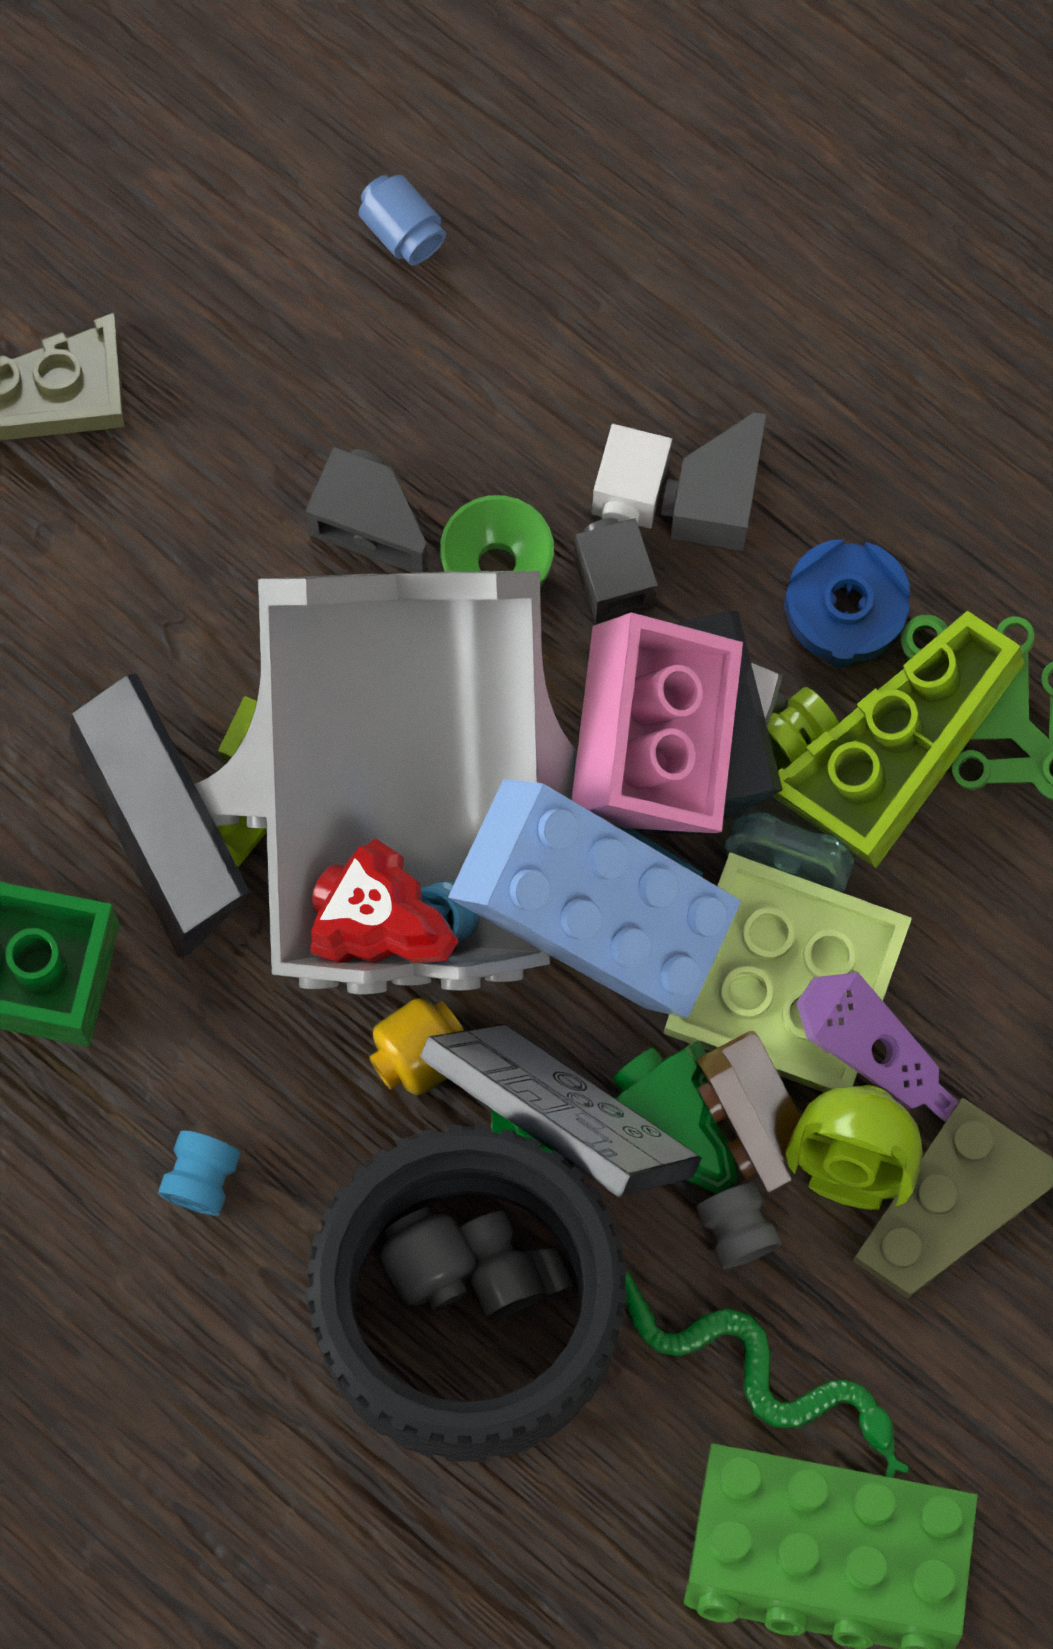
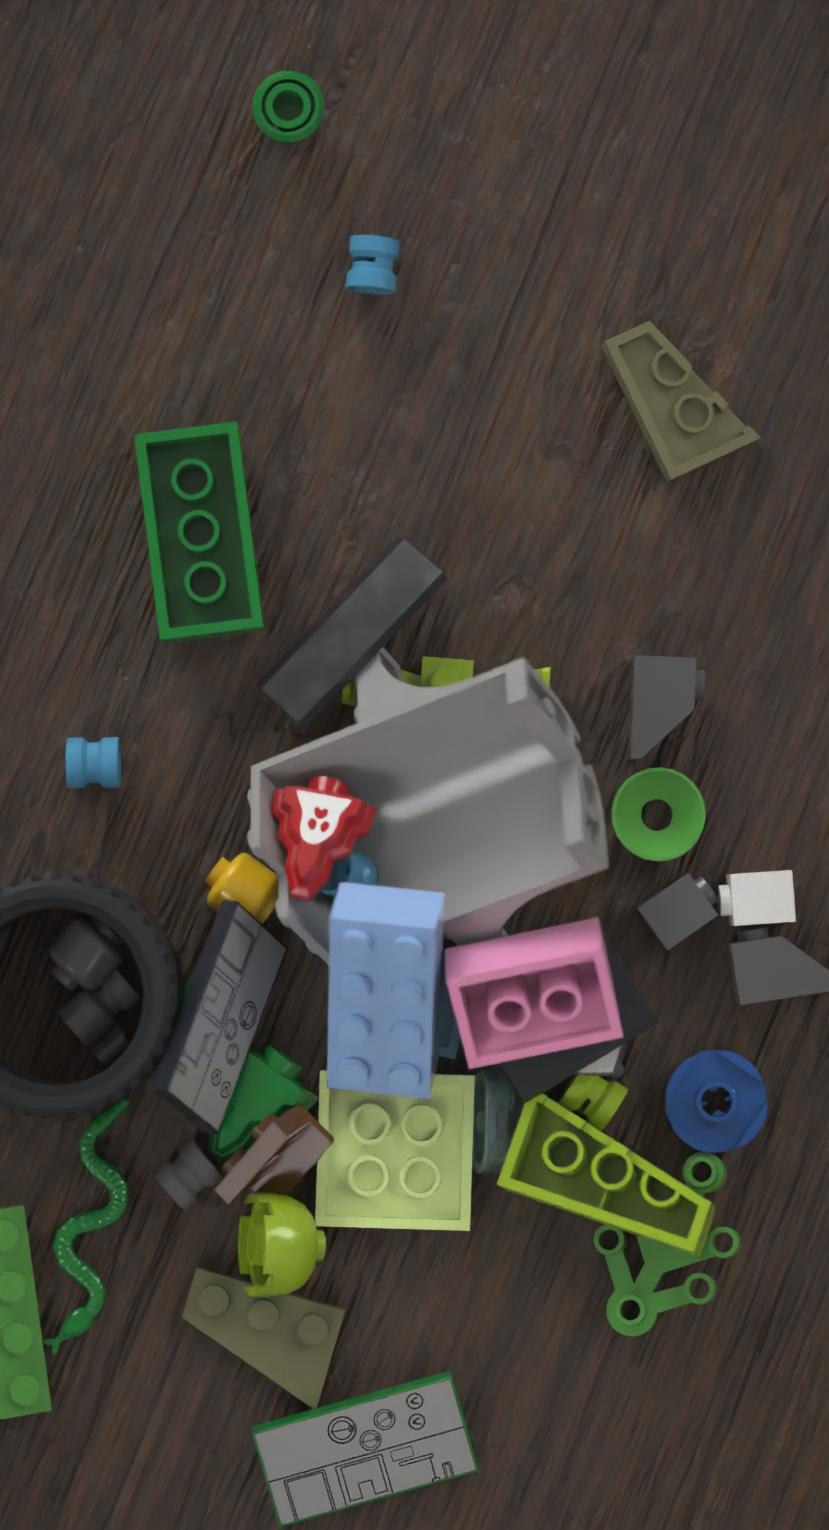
camera: 70 degrees right, 15 degrees up
(858, 1030) = (362, 1218): medium lavender piece -> none

